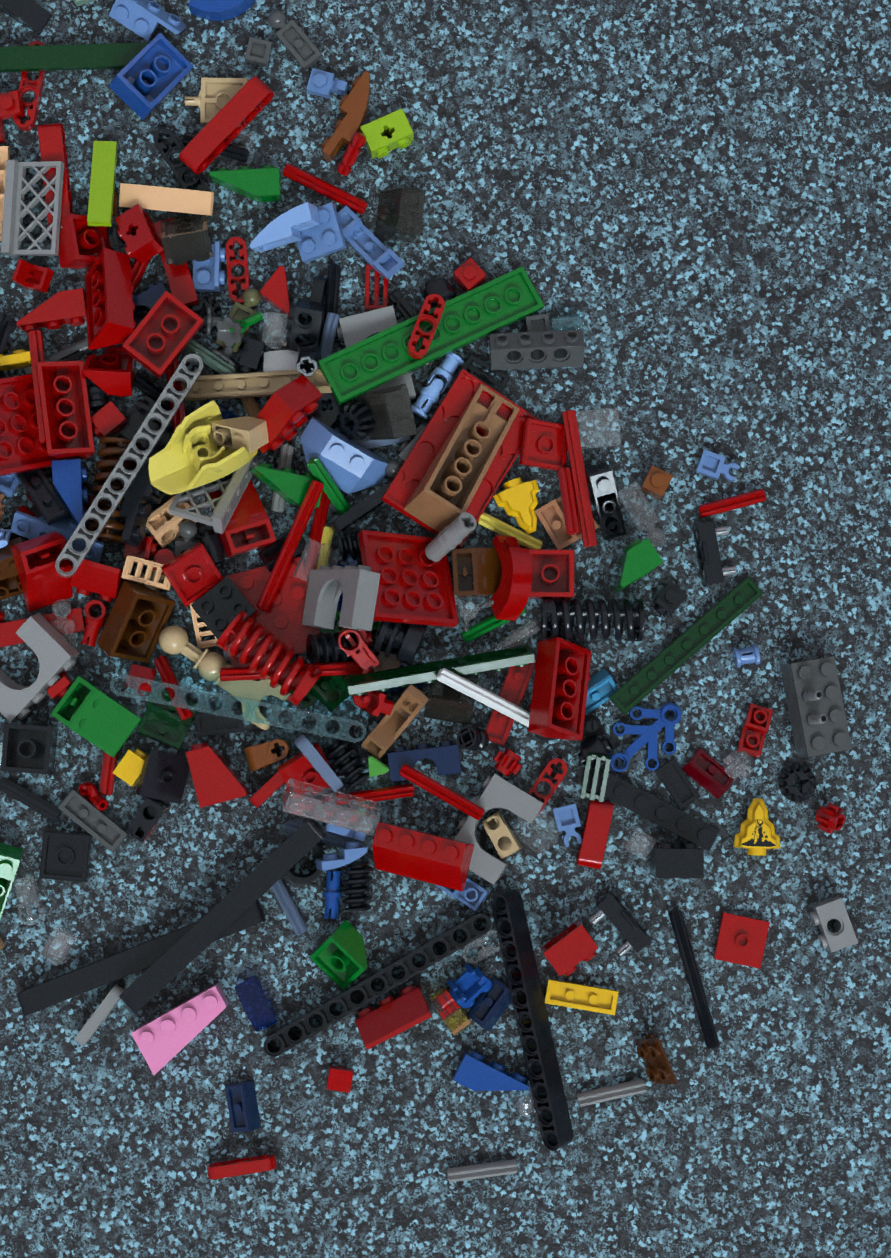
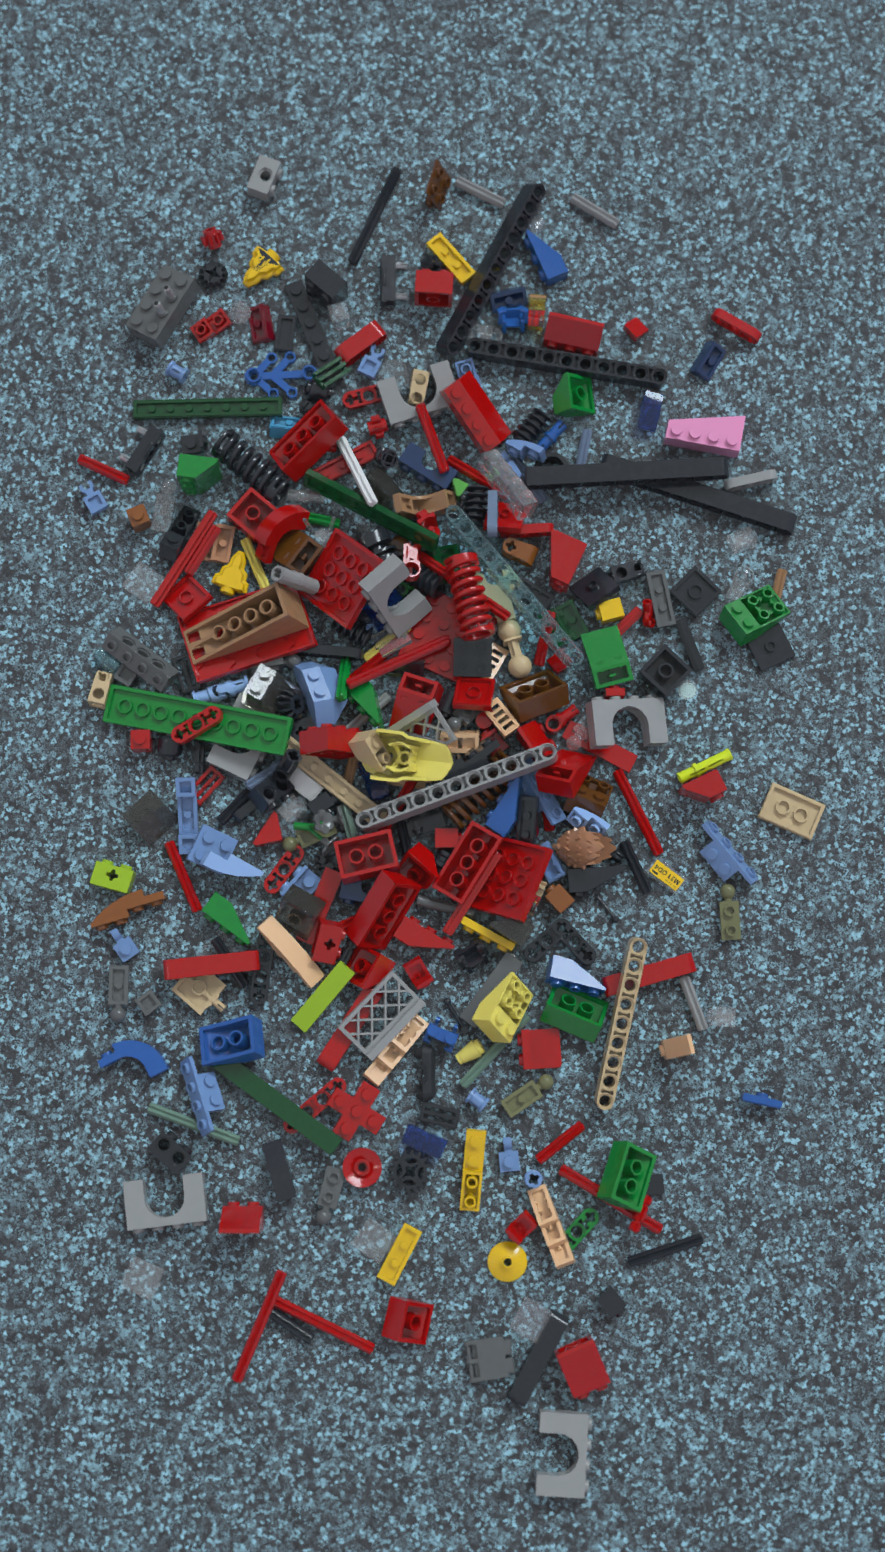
camera: 135 degrees left, 5 degrees down
(351, 153) = (147, 881): red axle -> none
(550, 294) = (100, 689): none -> tan leg
(594, 971) = (431, 263): none -> black gear
(741, 940) = (327, 214): red plate -> none

